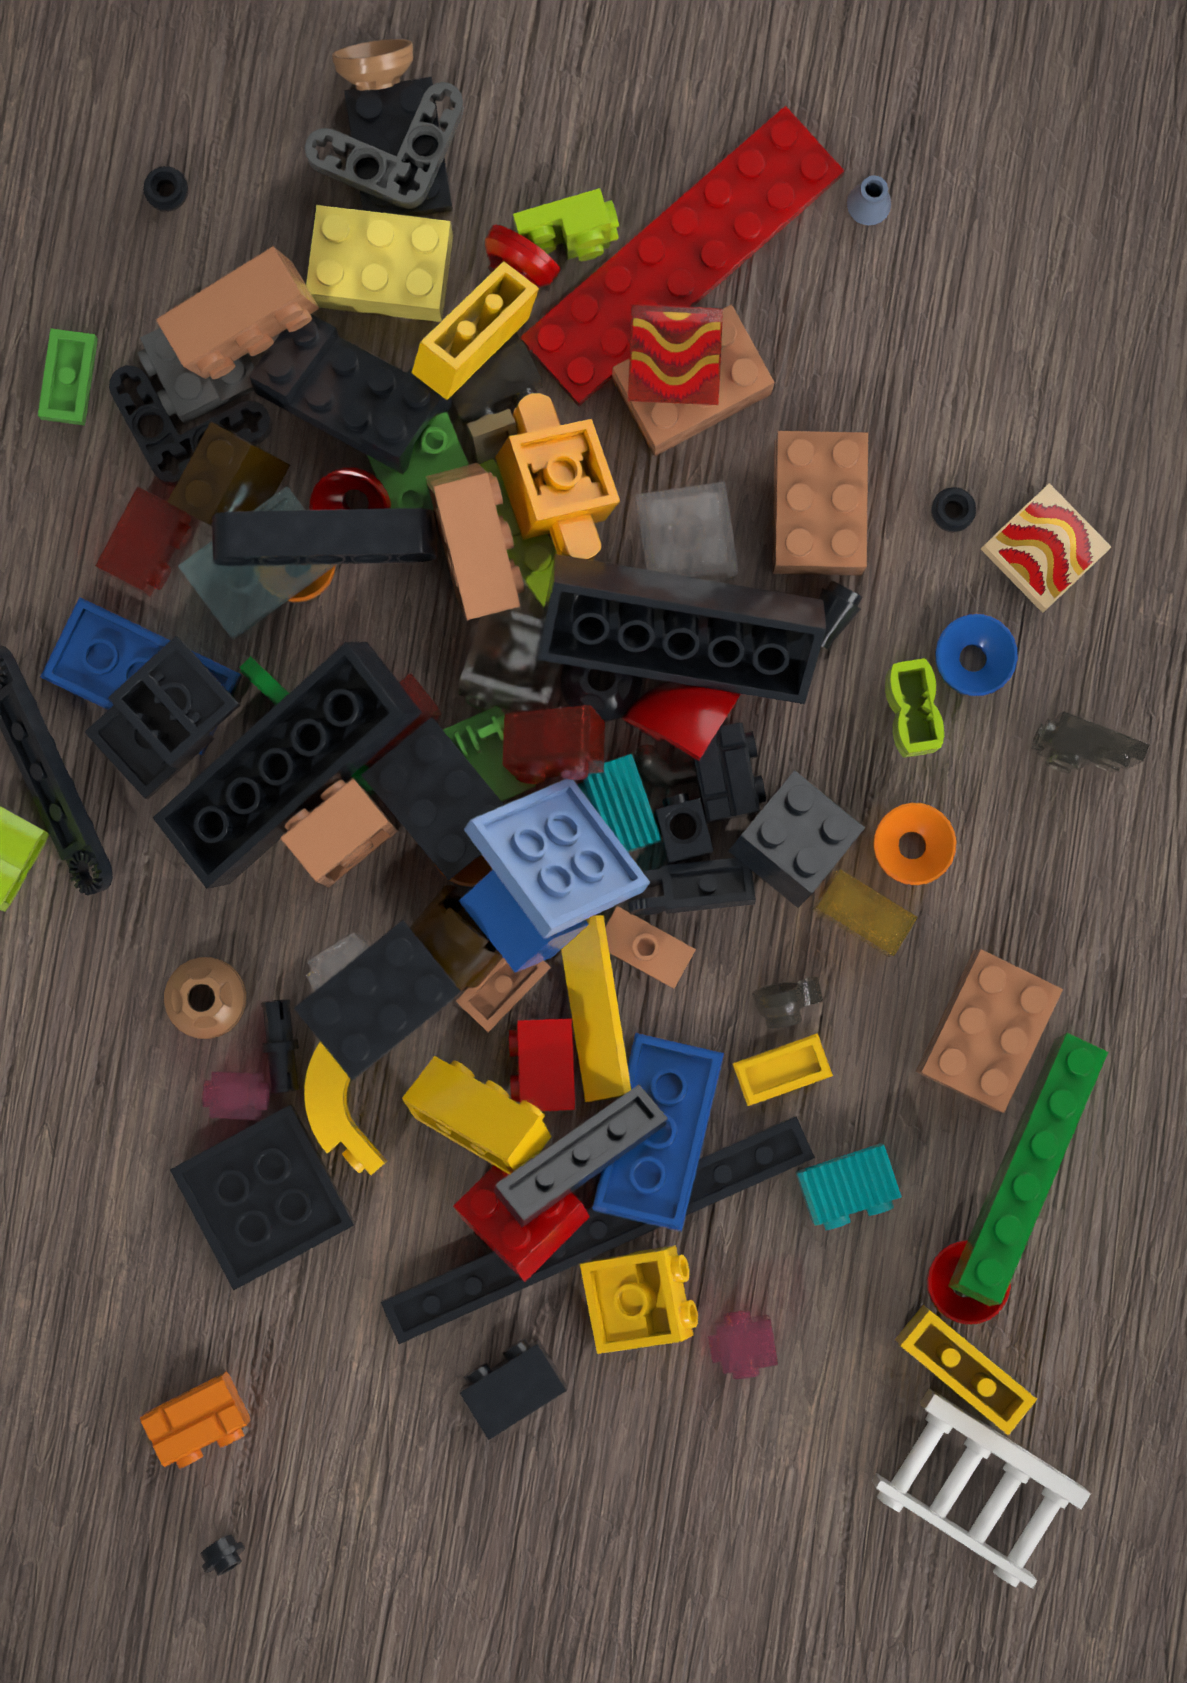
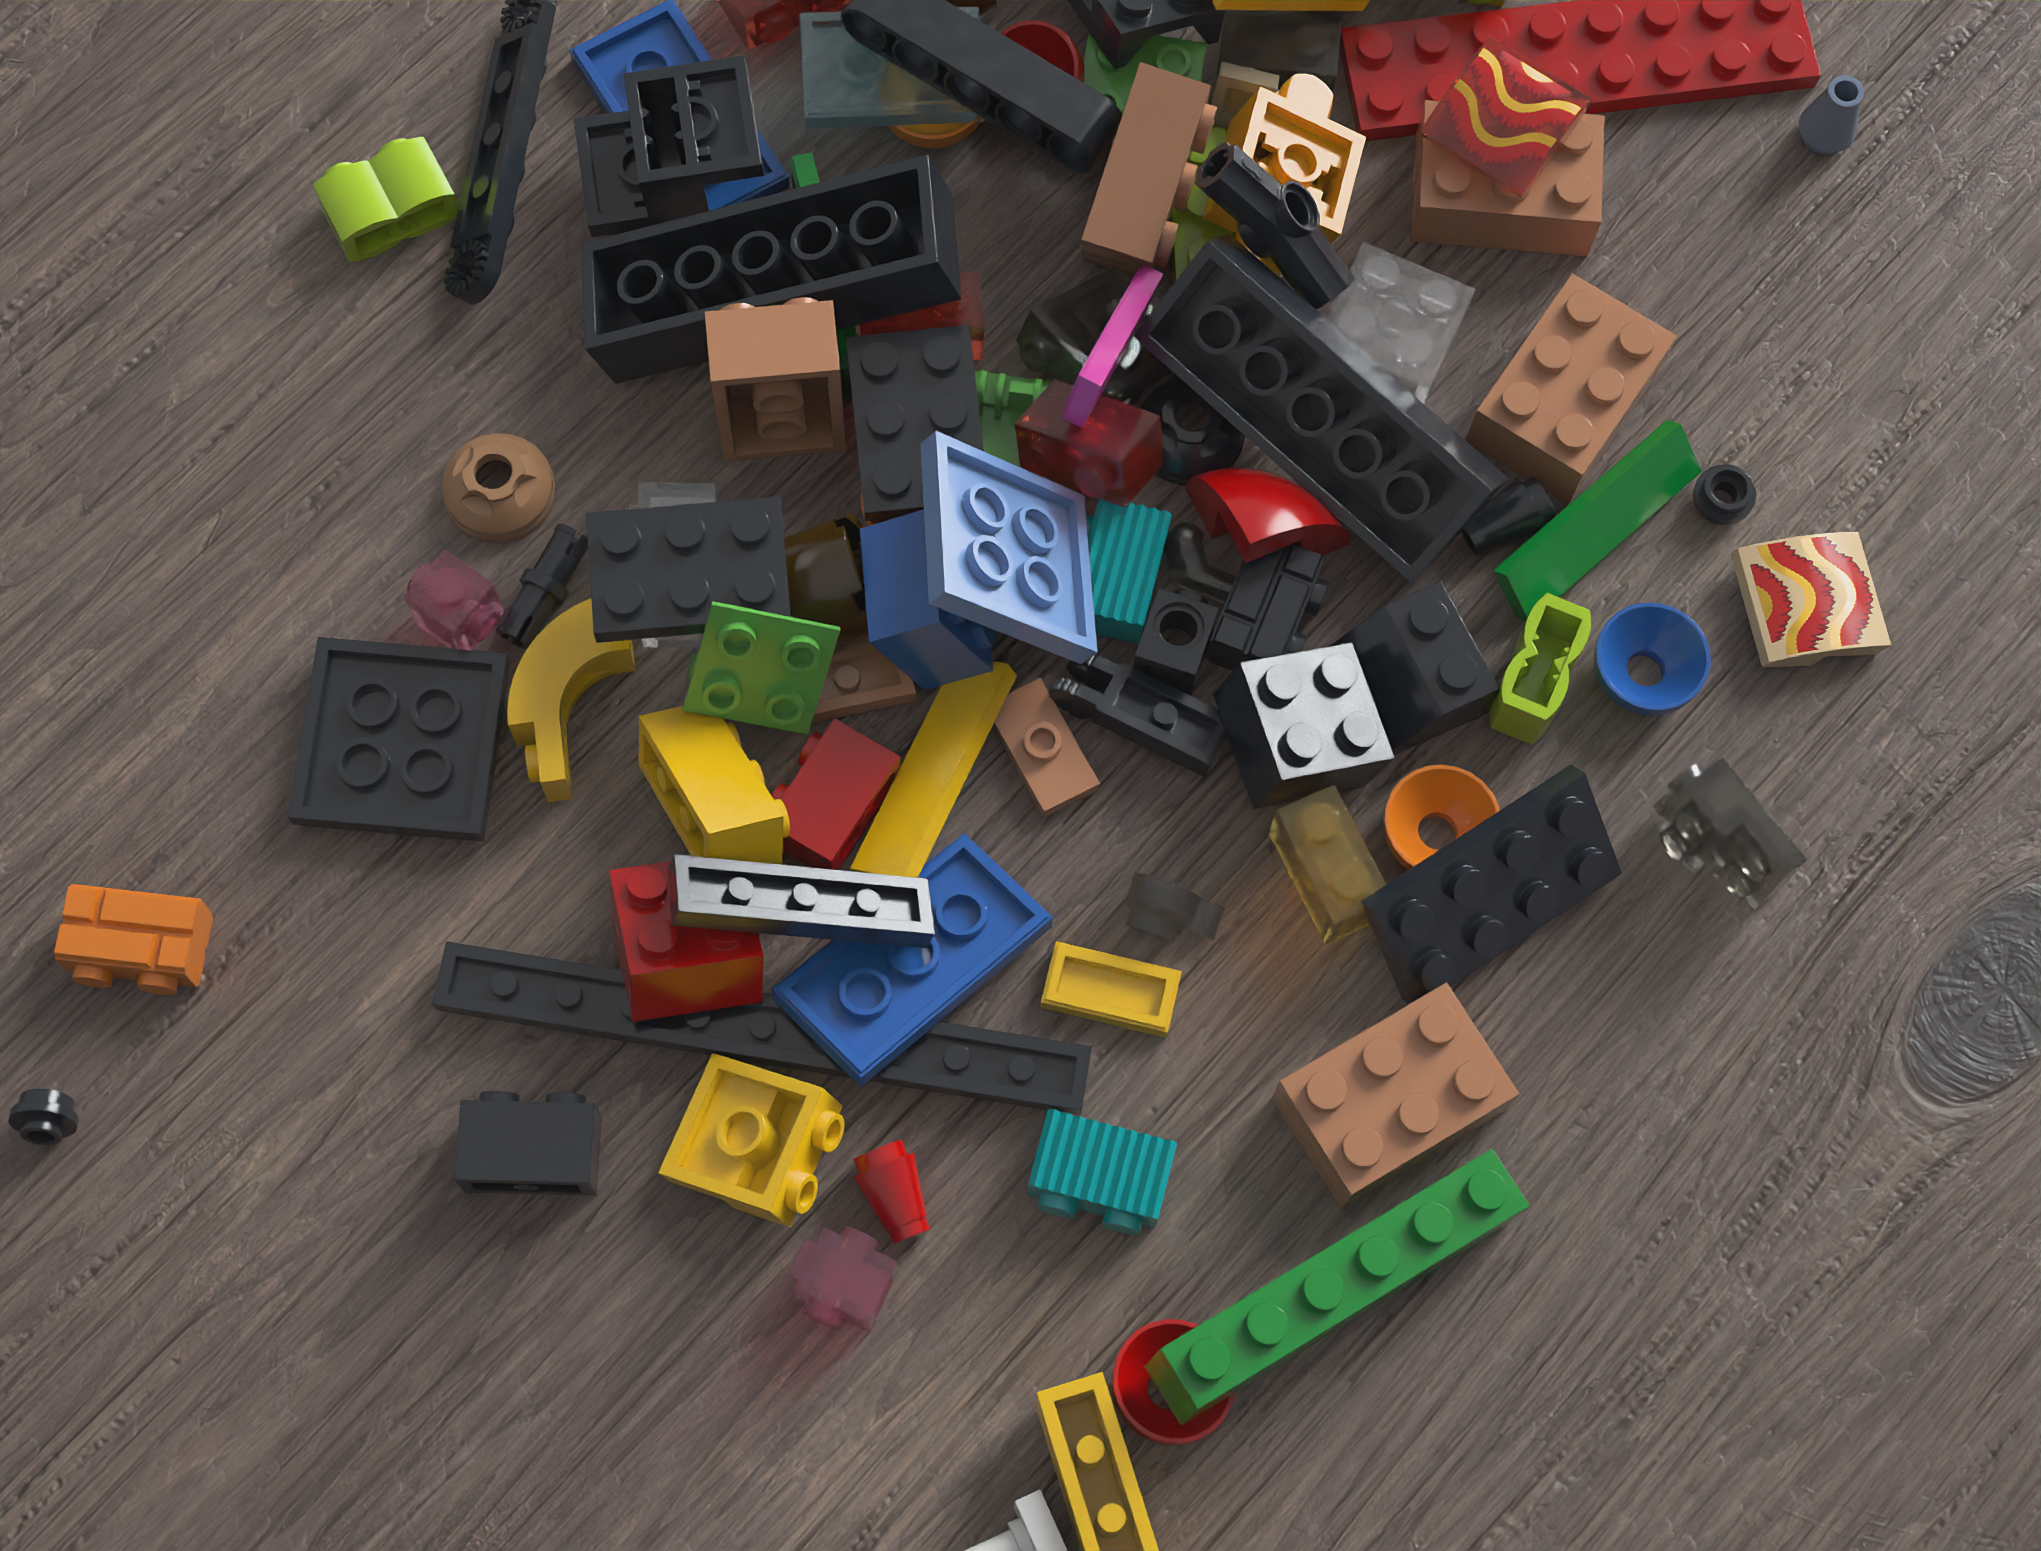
camera: 30 degrees right, 15 degrees down
(458, 1028) = (760, 668): none -> bright green hinge
(530, 675) = (1111, 345): none -> dark pink tile
(582, 529) = (1275, 222): none -> black piece
(736, 1273) = (893, 1189): none -> red cone
(838, 754) = (1422, 667): none -> black slope
(888, 580) = (1599, 519): none -> green tile
(969, 866) = (1493, 885): none -> black plate

